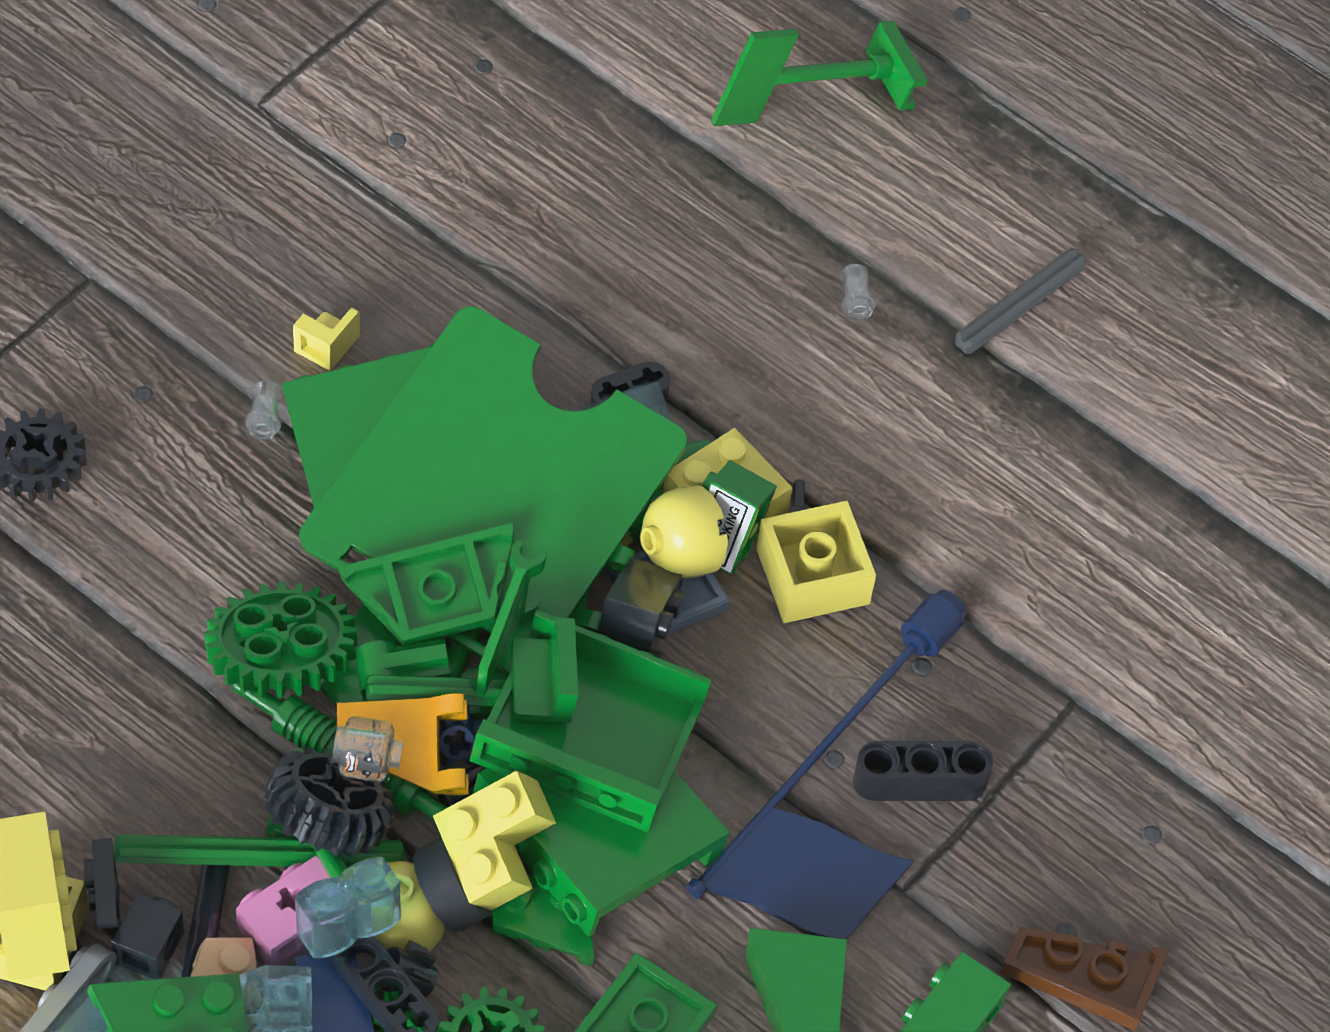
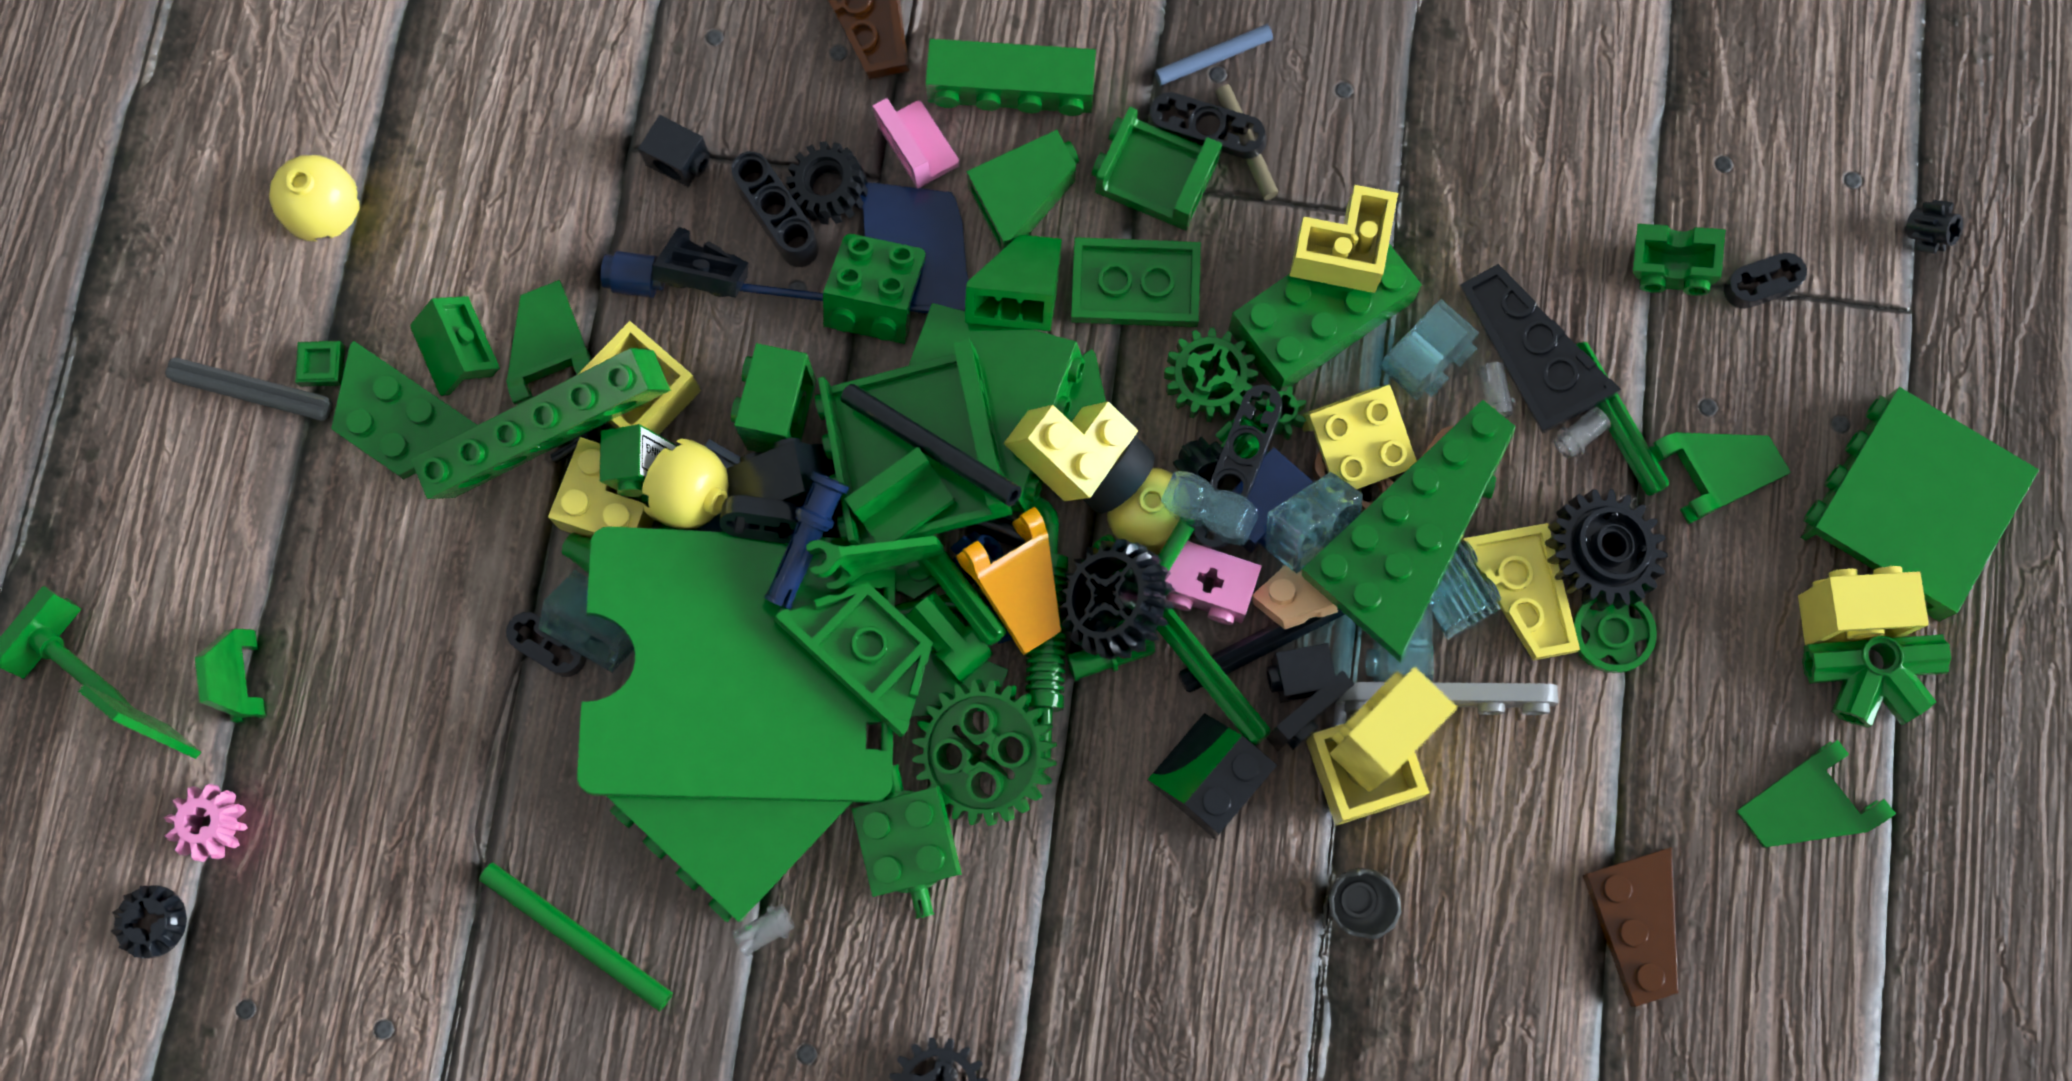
camera: 115 degrees left, 20 degrees up
(116, 796) = (1211, 774): none -> black slope
(250, 546) = (907, 843): none -> green plate
(326, 337) = (650, 932): light yellow panel -> none
(366, 288) = (576, 936): none -> green piece
(366, 749) = (1060, 593): clear head -> none
(574, 591) = (813, 520): none -> dark blue pin
(576, 715) = (931, 445): none -> black piece
(609, 567) = (758, 518): none -> black beam
(610, 48) = (164, 933): none -> black gear
(650, 100) = (188, 821): none -> bright pink gear
(694, 911) = (1017, 285): none -> green slope
(724, 646) = (774, 397): none -> green brick
(757, 148) = (223, 678): none -> green flag
(789, 806) = (872, 288): none -> green bracket
(818, 458) = (541, 424): none -> green brick
(858, 301) = (323, 521): clear pin -> none
(901, 669) = (698, 267): none -> black wing
(914, 529) = (544, 340): none -> green flag
(916, 929) = (916, 141): none -> bright pink panel
(921, 390) = (390, 413): none -> green wing
(925, 807) = (815, 165): none -> black tyre
(960, 463) = (453, 343): none -> green panel
(1011, 361) = (319, 363): none -> green tile
(1039, 722) = (674, 151): none -> black brick
(1179, 429) = (313, 197): none -> light yellow cylinder

